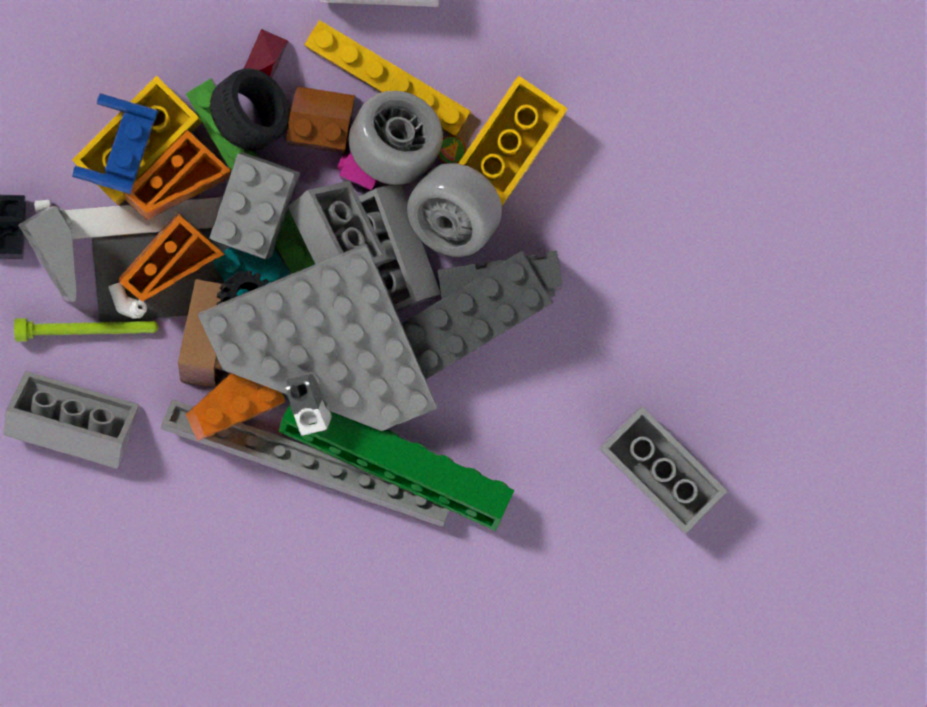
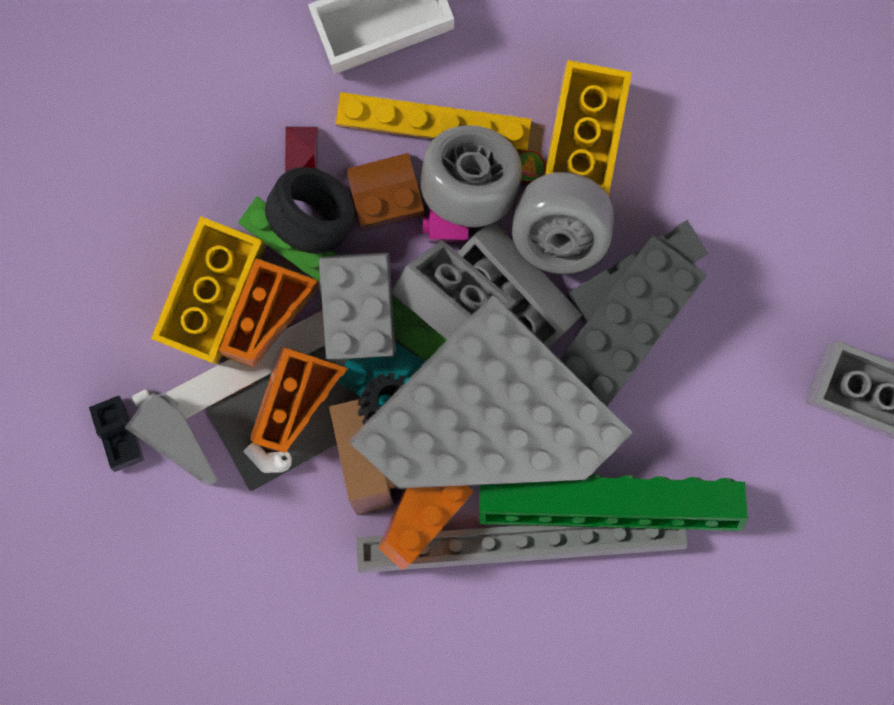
camera: 25 degrees left, 0 degrees up
(27, 329) = (178, 530): lime piece -> none
(70, 419) = (262, 602): light grey slope -> none
(127, 147) = (202, 302): blue plate -> none
(307, 404) = (502, 486): leg -> none

